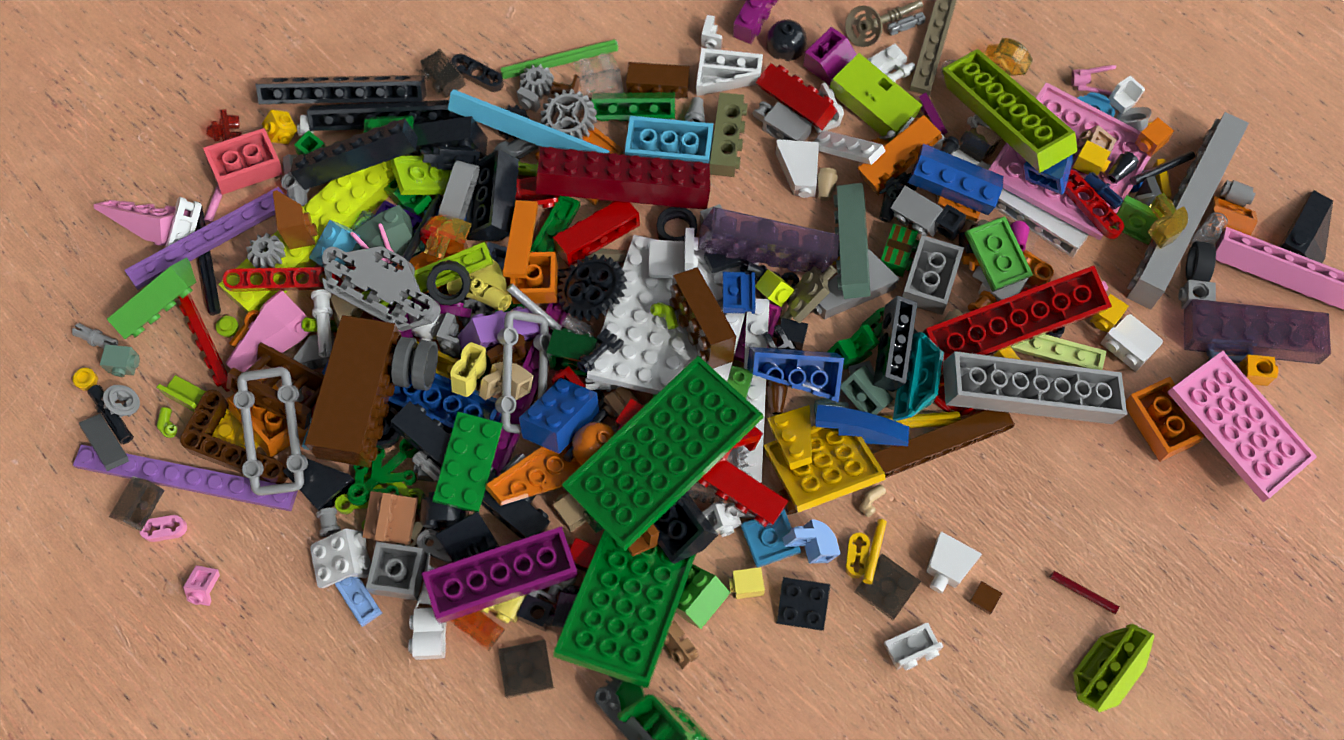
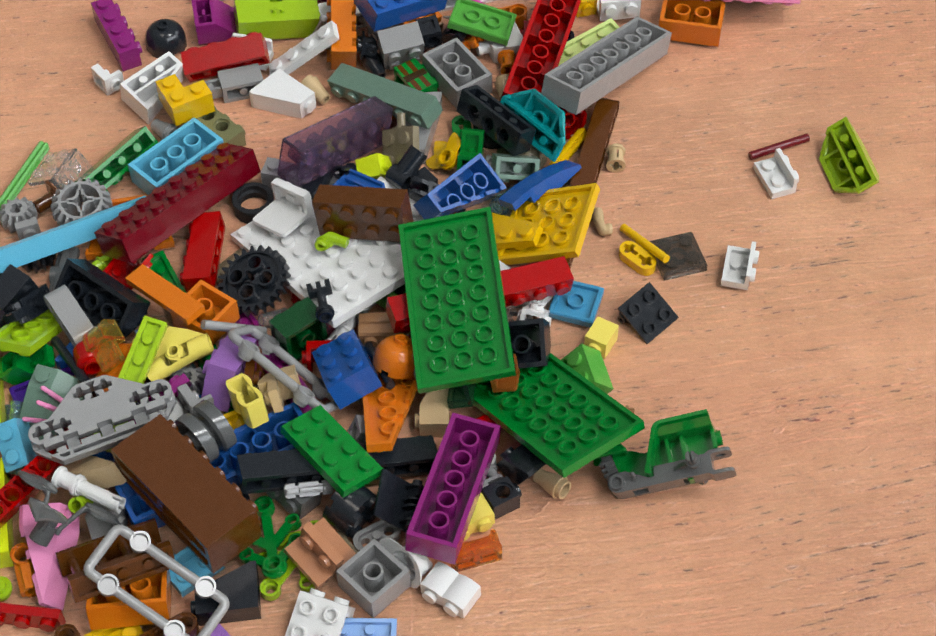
camera: 55 degrees left, 15 degrees down
(257, 318) = (48, 518): none -> dark grey plant
(328, 521) = (275, 611): light grey bush -> none
(446, 299) = (164, 349): black tyre -> none
(525, 669) = (541, 538): clear smoke plate -> none
(658, 78) = (107, 134): reddish brown brick -> none
(719, 105) = (184, 102): none -> yellow brick
(782, 314) = (401, 173): none -> black piece
(818, 540) = (606, 271): light blue brick -> none
(840, 328) = (445, 153): none -> yellow plate
(944, 469) = (615, 157): none -> tan bush
(950, 562) = (691, 204): white torso -> none
(985, 597) = (736, 203): reddish brown tile -> none
(1046, 611) = (777, 175): none -> white bracket

